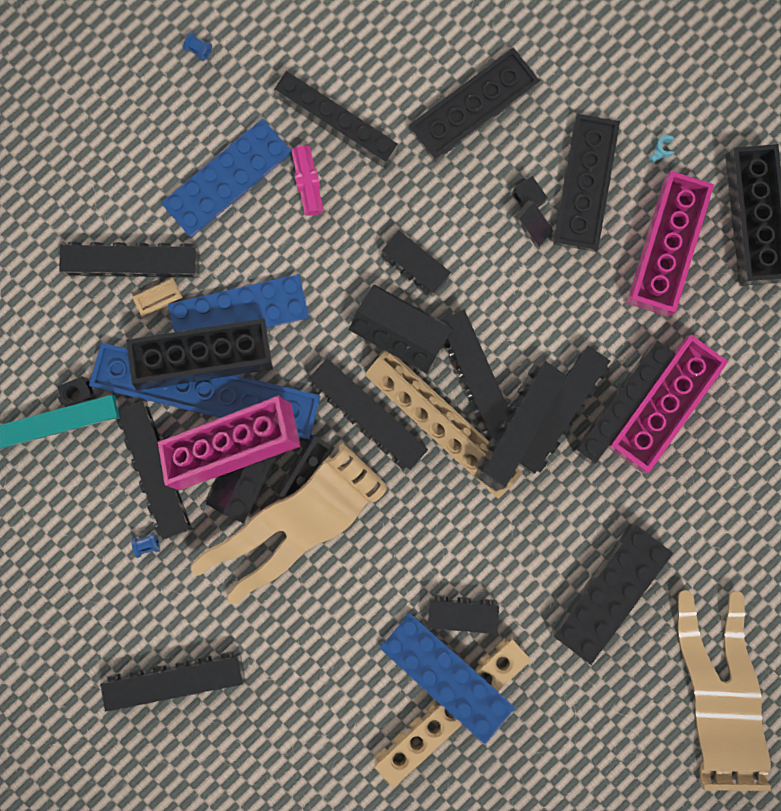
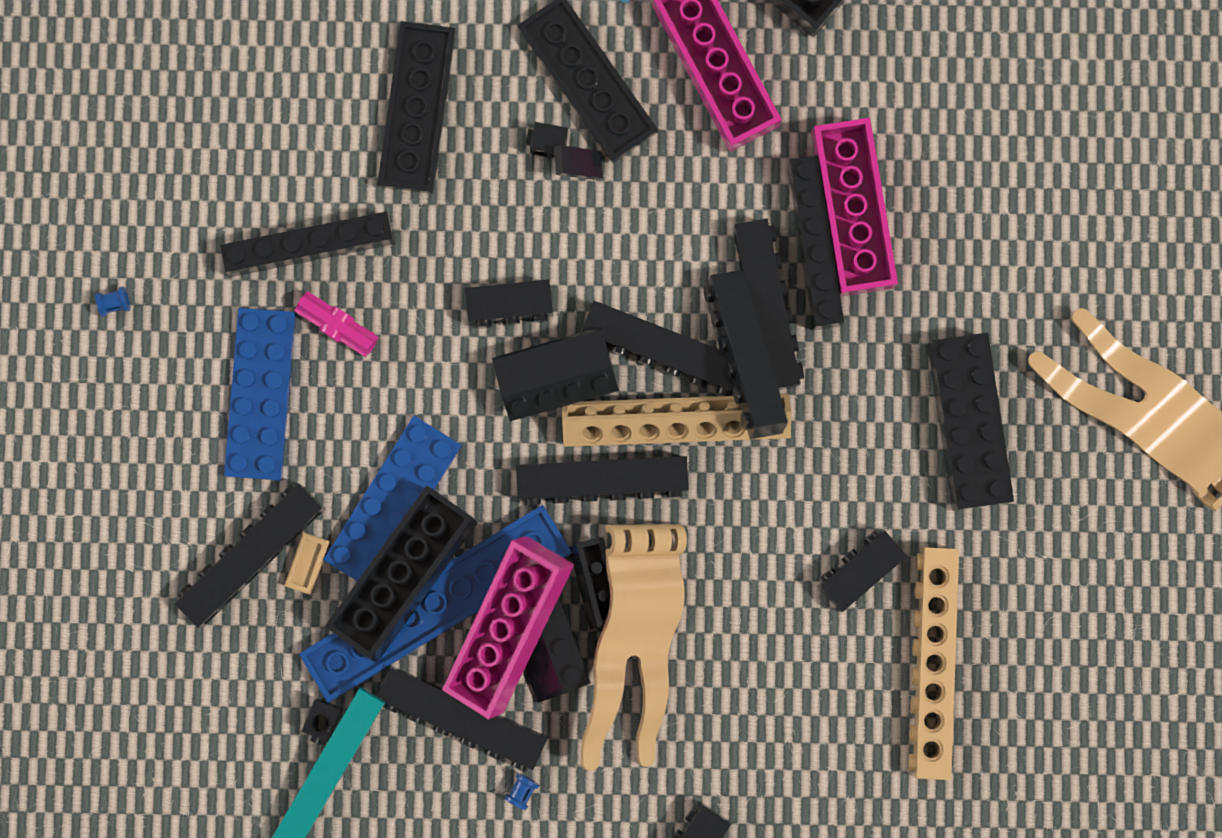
camera: 45 degrees left, 0 degrees up
(447, 678) = (902, 637): blue plate -> none

